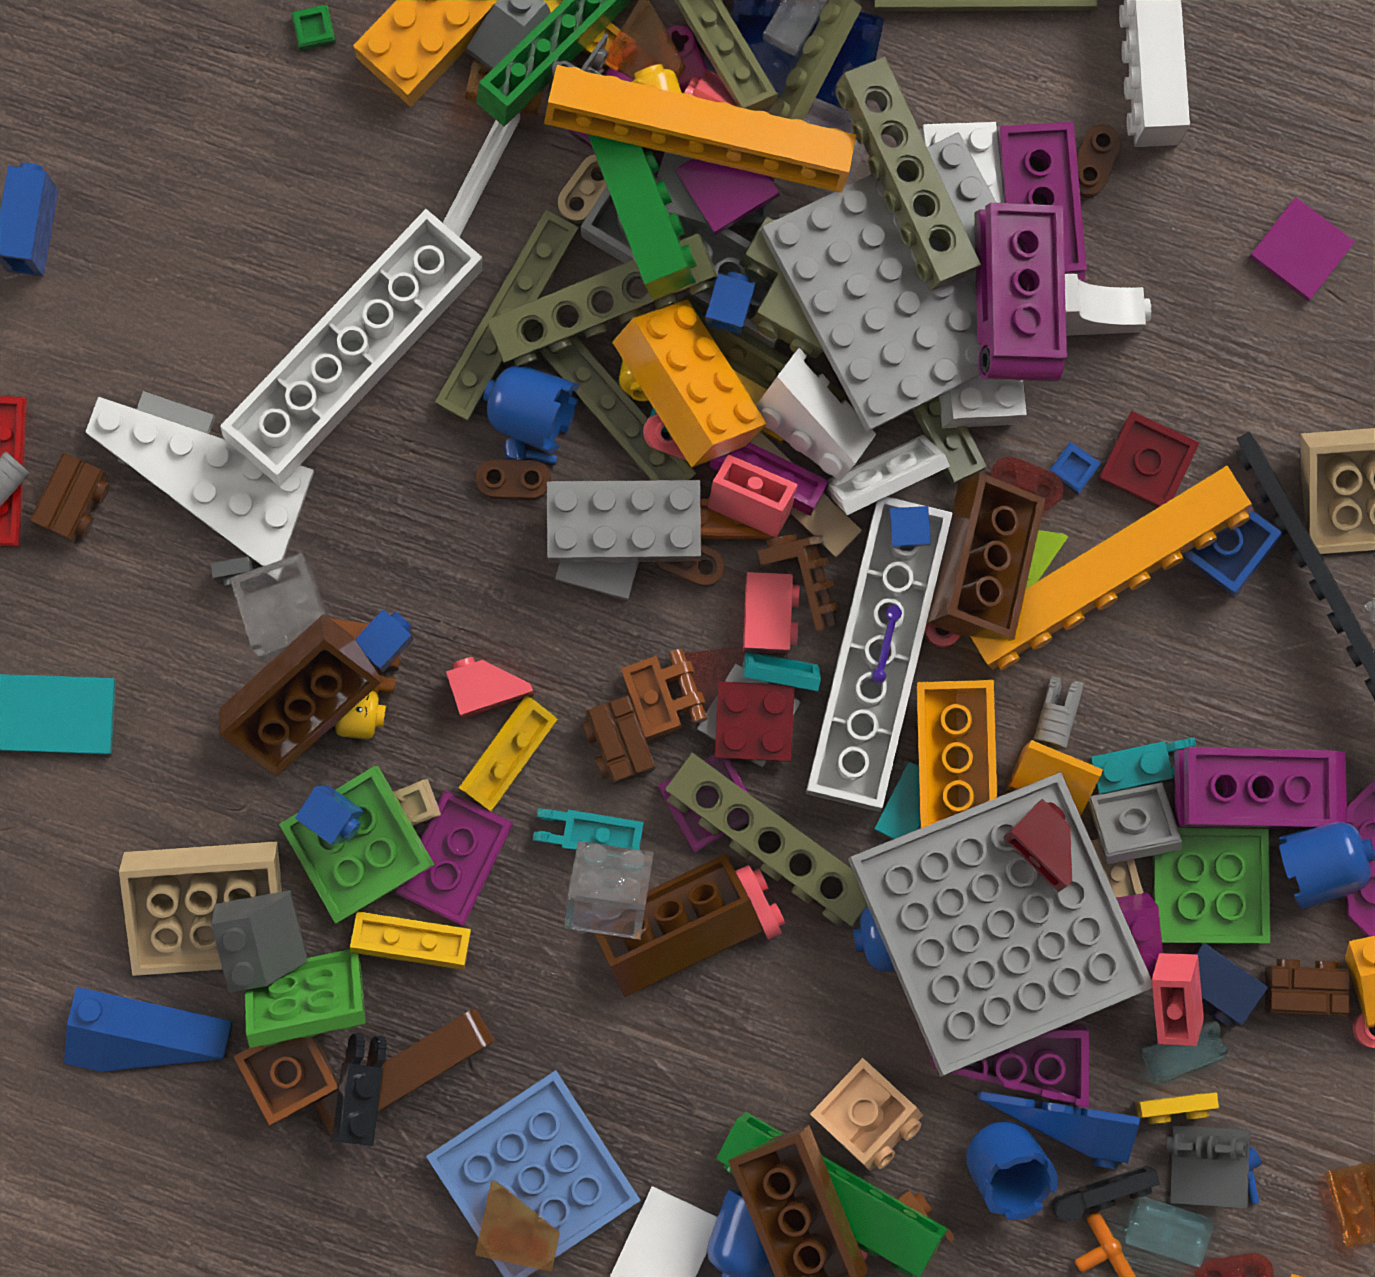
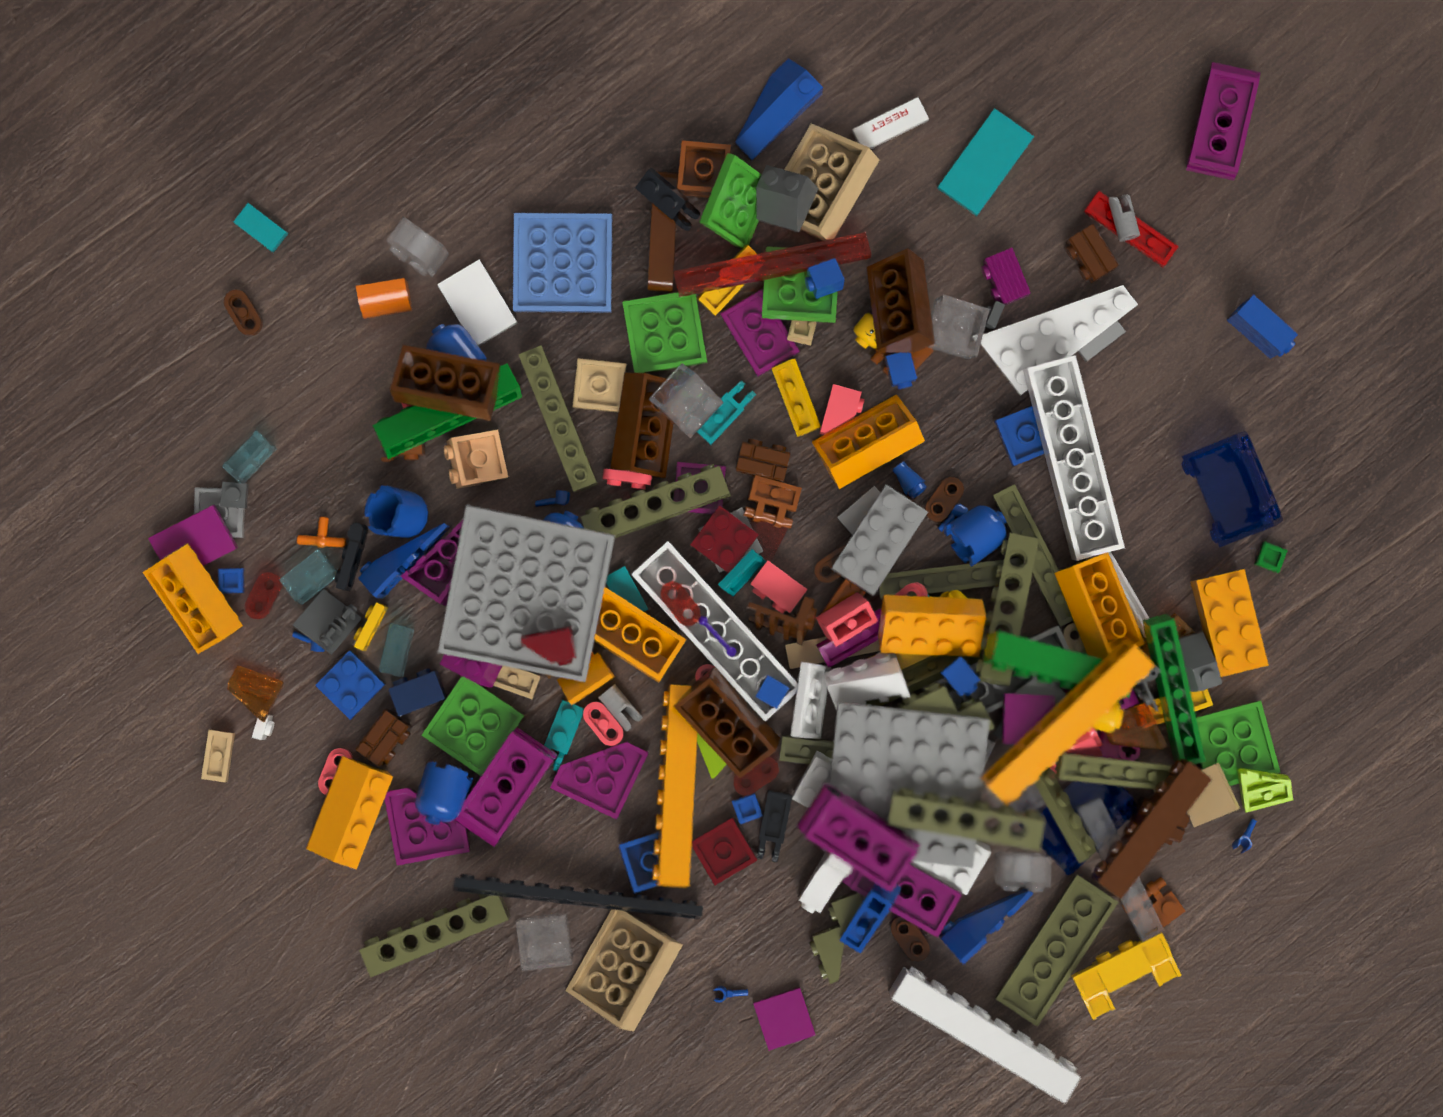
camera: 130 degrees right, 5 degrees up
(66, 870) = (891, 124): none -> white tile
(173, 588) = (1005, 277): none -> magenta brick
(258, 125) = (1234, 488): none -> clear blue windscreen
(357, 898) = (770, 264): none -> clear red plate
(367, 435) = (1020, 436): none -> blue plate
(503, 623) = (868, 441): none -> light orange slope
(515, 1232) = (540, 233): clear orange wing -> none
(518, 538) = (909, 480): none -> blue cone
(523, 191) = (1098, 606): none -> light orange brick
(535, 981) = (664, 332): none -> bright green plate
(662, 1021) = (598, 385): none -> tan tile
(744, 1042) = (558, 419): none -> olive brick
(843, 970) = (562, 498): none -> blue hand
(878, 718) = (680, 604): none -> clear red plate
(920, 72) = (1023, 870): none -> clear brick
(1036, 90) = (969, 932): none -> blue wedge
(1068, 421) = (774, 822): none -> black hinge
(1094, 721) = (603, 723): none -> coral plate
(1108, 220) = (869, 916): none -> blue slope
(1134, 823) = (533, 706): light grey tile -> none
(1163, 675) = (602, 778): none -> magenta plate
(1166, 254) = (827, 942): none -> olive arch
(1177, 999) = (423, 661): coral brick -> none
(1268, 1081) = (350, 684): none -> blue plate
(1319, 338) = (729, 993): none -> blue hand

